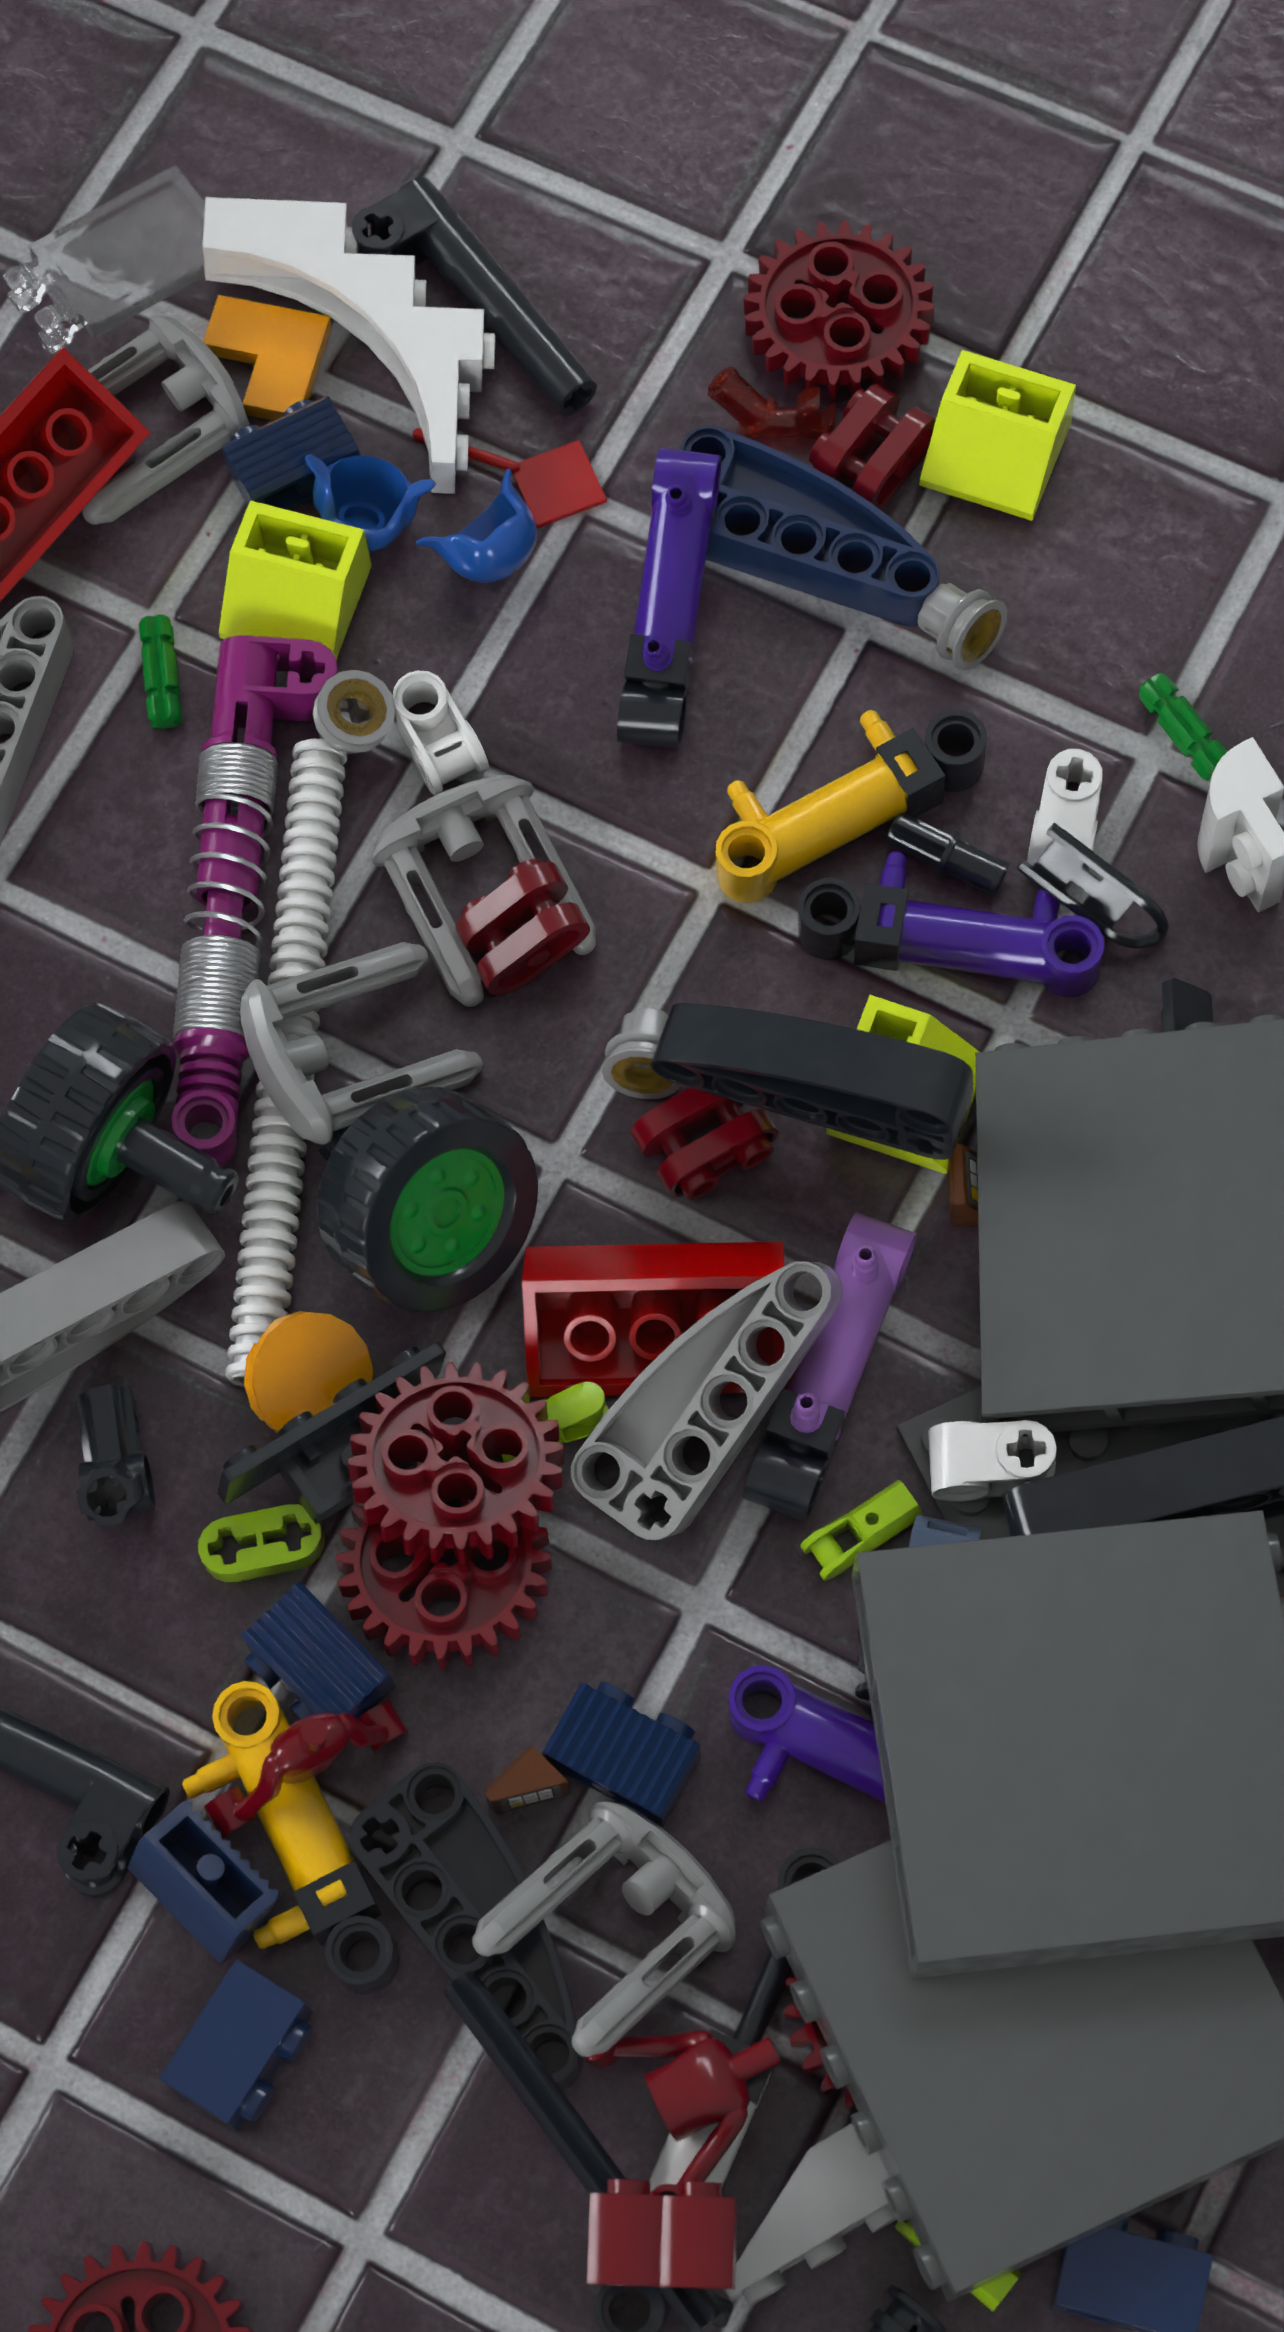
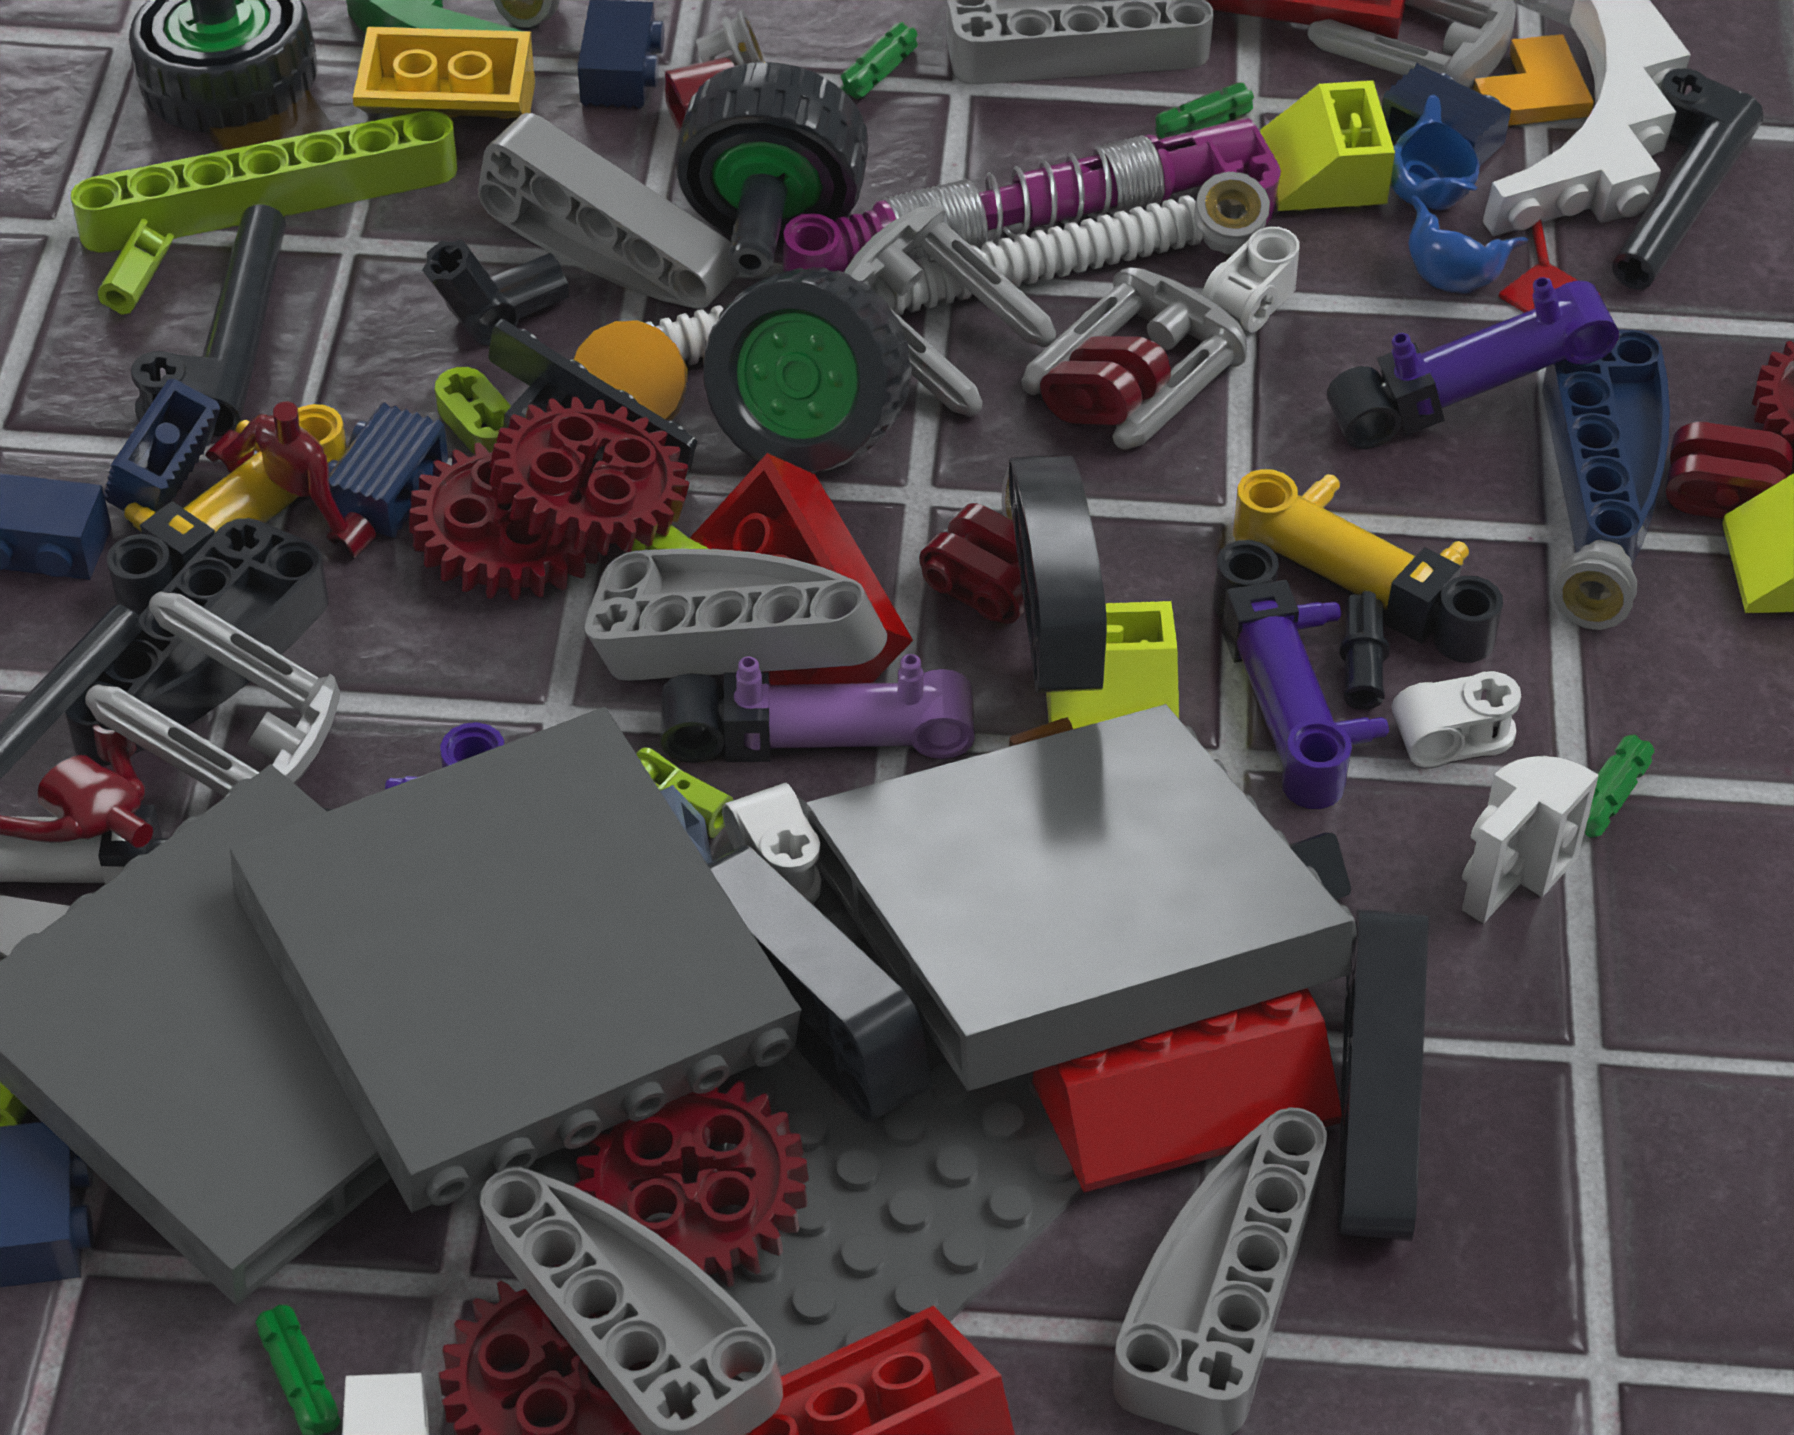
camera: 60 degrees right, 20 degrees down
(525, 1783) = (336, 632): reddish brown slope -> none
(624, 1751) = (390, 687): dark blue brick -> none
(763, 416) = (1706, 382): clear red piece -> none
(1107, 896) = (1393, 768): black piece -> none

